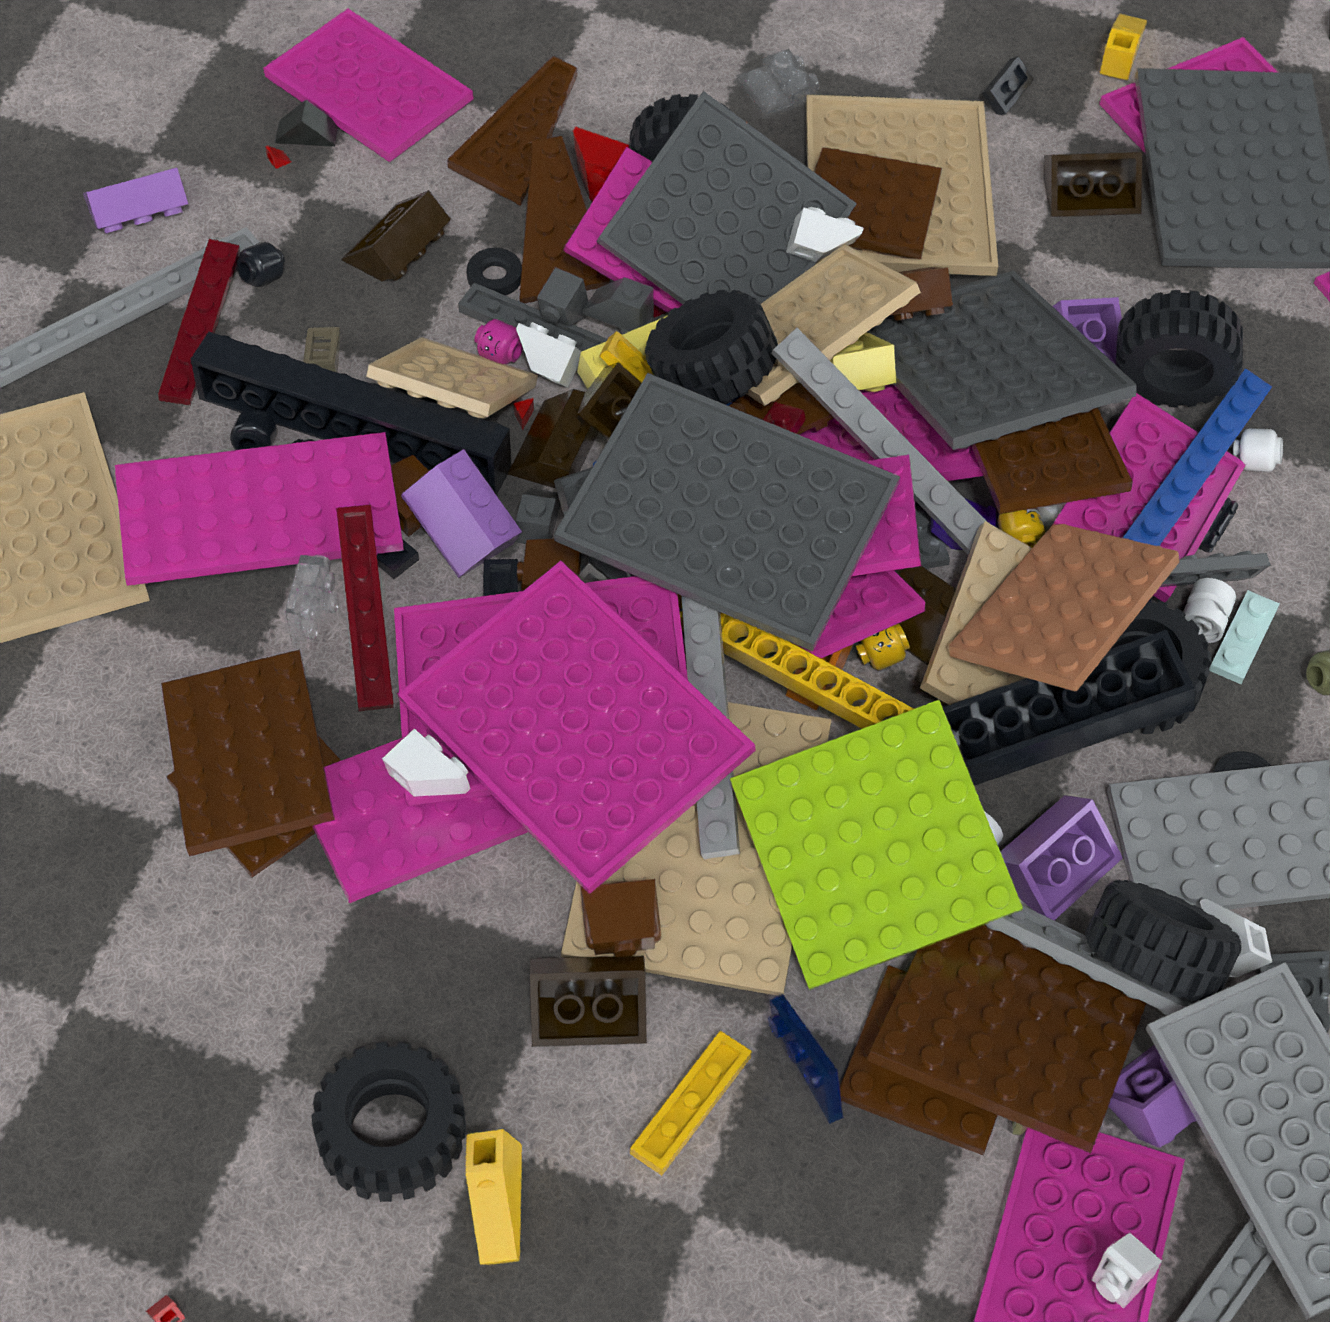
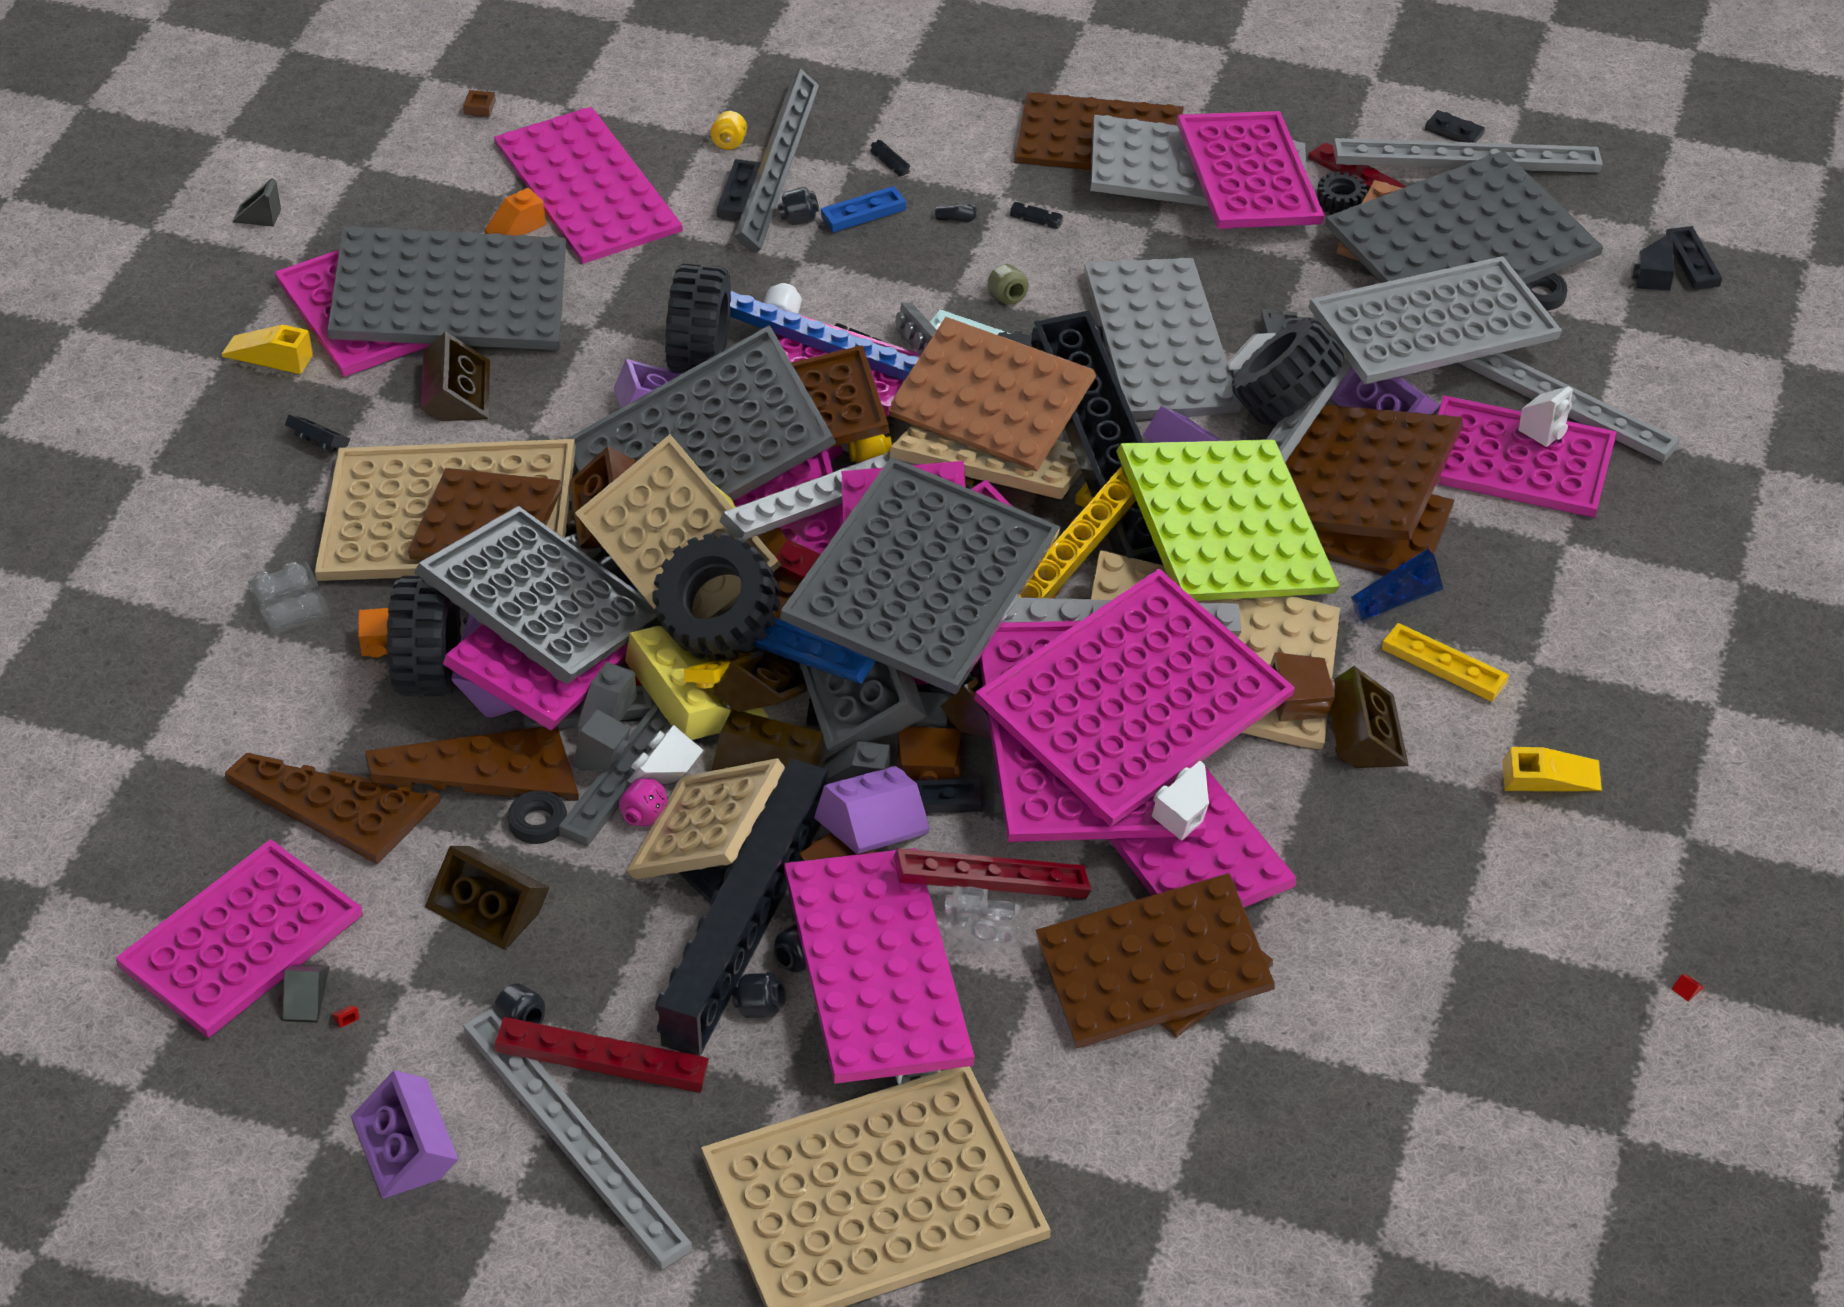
camera: 90 degrees left, 10 degrees down
(325, 359) = (655, 961): dark tan slope -> none
(402, 1166) = (1499, 865): black tyre -> none
(595, 158) = (417, 715): red slope -> none
(819, 235) = (562, 529): white slope -> none

